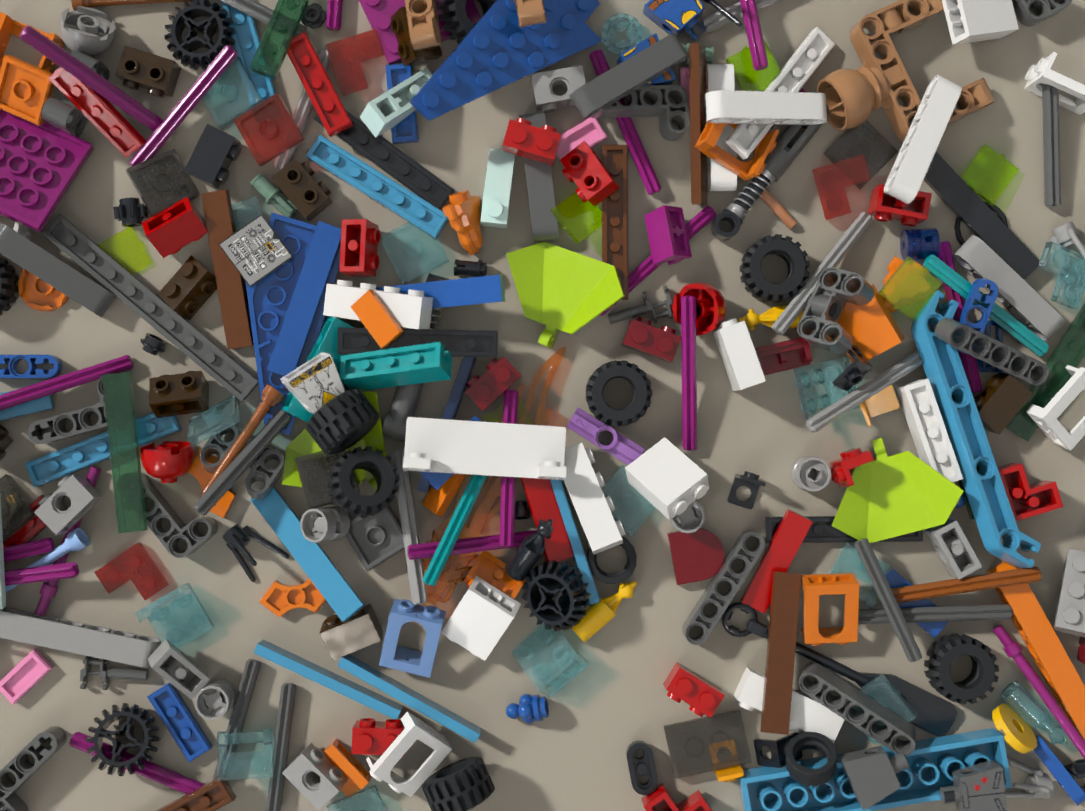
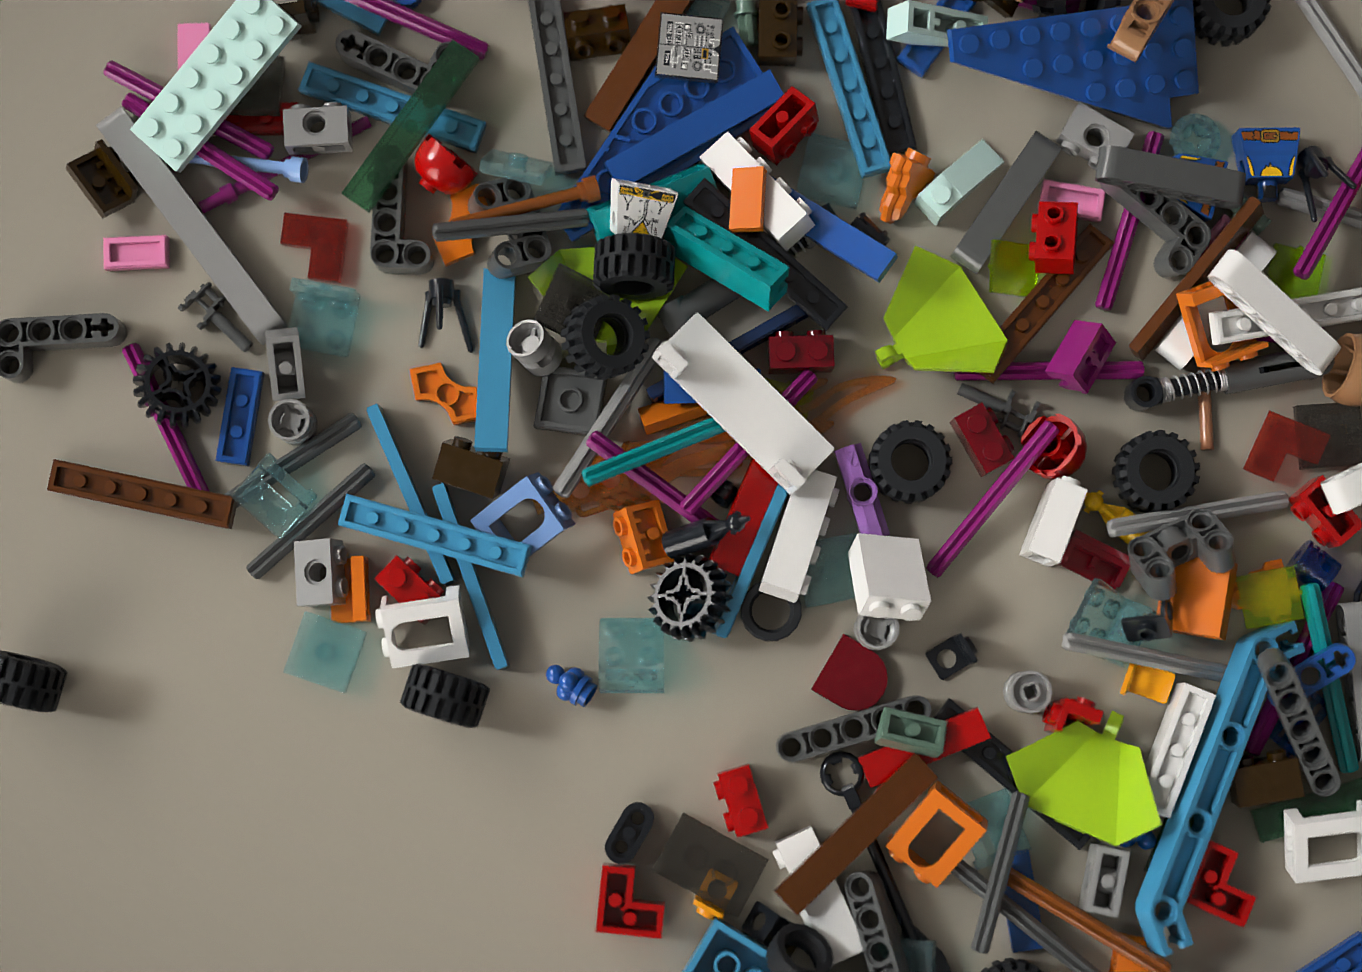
camera: 45 degrees right, 5 degrees down
(153, 344) = (519, 54): black plate -> none
(179, 394) = (504, 117): dark brown brick -> none
(365, 694) = (435, 535): none -> dark azure tile
(480, 618) = (601, 558): white brick -> none
(532, 141) = (1028, 161): red brick -> none
(602, 612) = (719, 653): yellow wheel -> none
(762, 561) = (911, 732): none -> sand green slope

